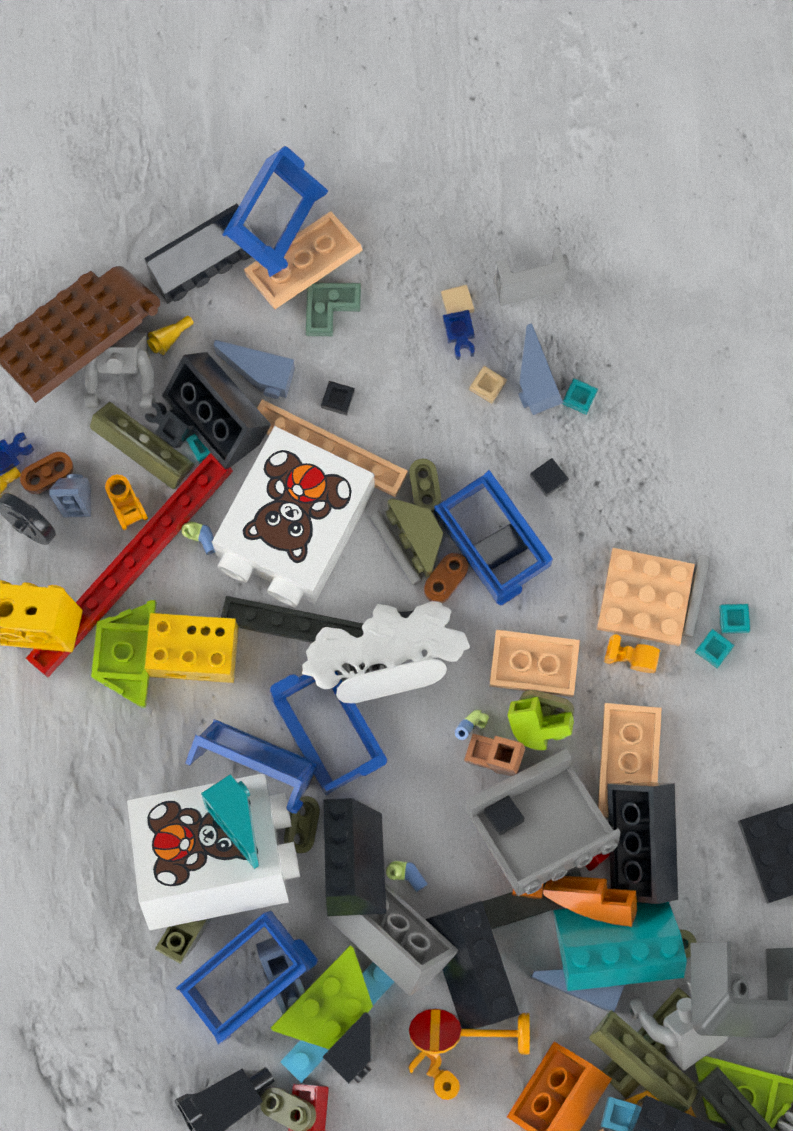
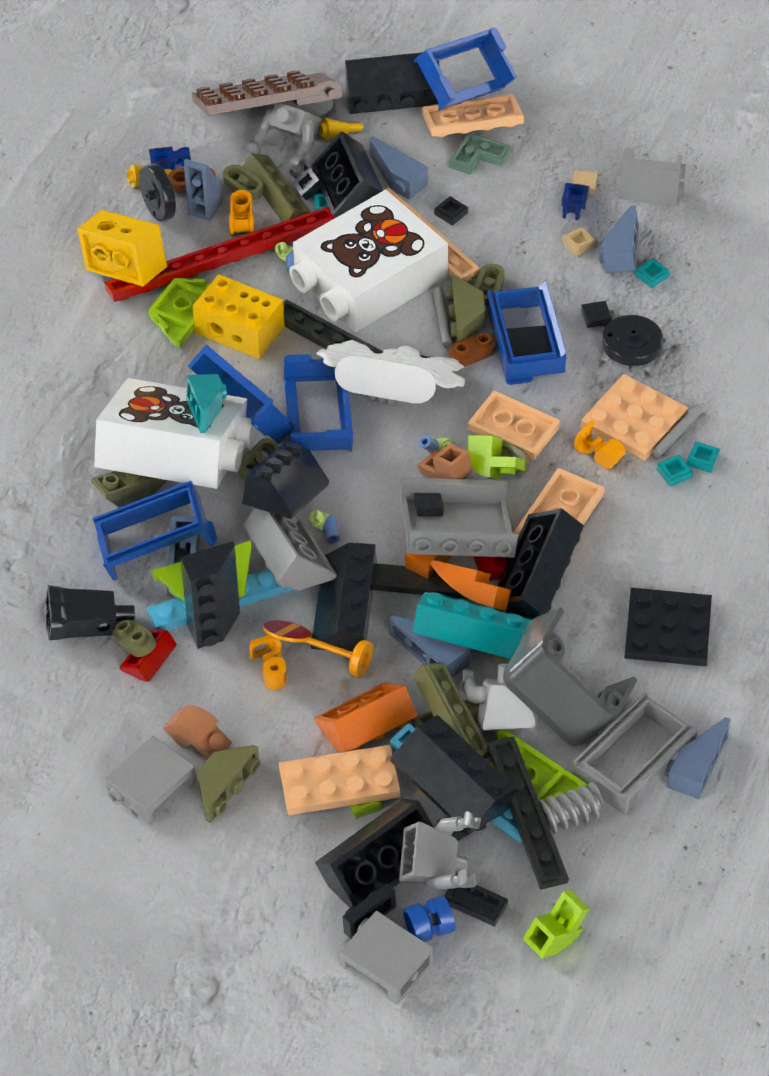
camera: 25 degrees right, 25 degrees down
(104, 454) = (239, 178): none -> olive plate
(603, 500) = (632, 340): none -> black wheel

